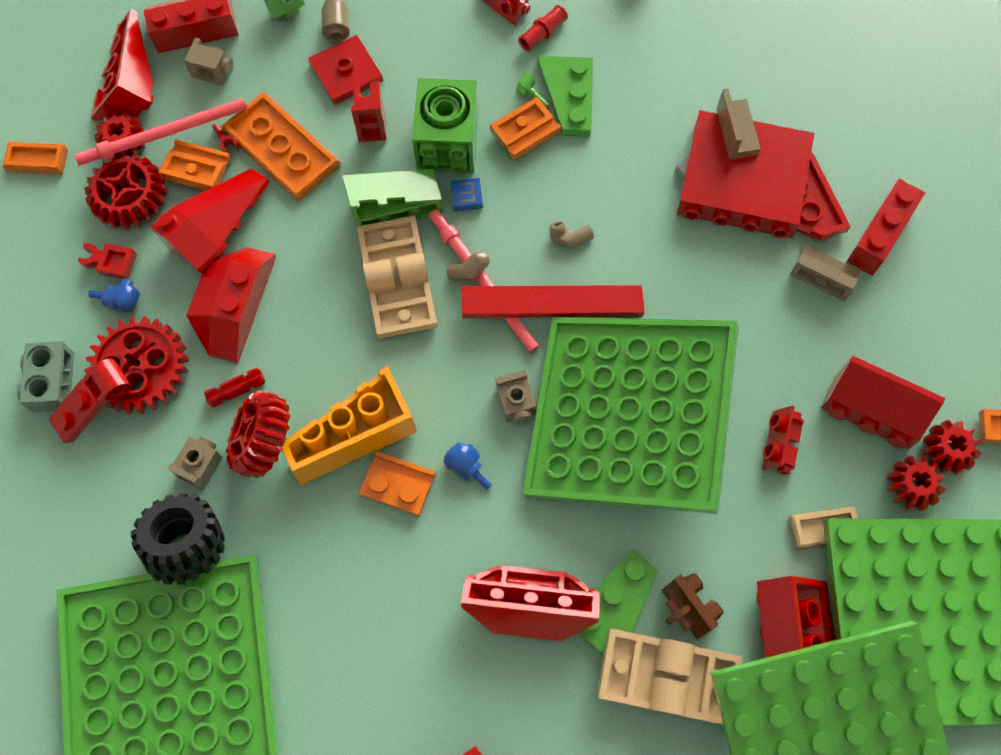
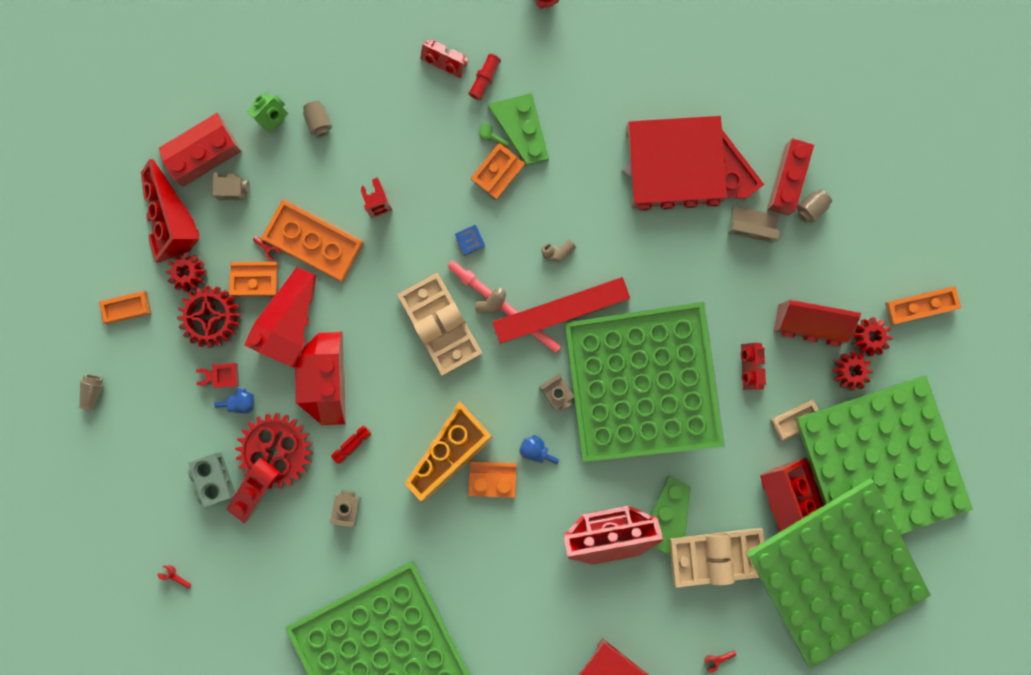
camera: 20 degrees left, 15 degrees up
(107, 150) = (184, 293): coral bar -> none
(166, 522) = (342, 559): black tyre -> none
(258, 434) = (384, 479): red gear -> none
(345, 67) = (339, 159): red plate -> none
(392, 195) = (417, 262): wedge -> none
(445, 125) = (439, 207): bright green brick -> none
(688, 607) = (718, 508): reddish brown hips -> none
(737, 127) = (662, 130): dark tan panel -> none
(908, 269) = (814, 206): none -> dark tan brick

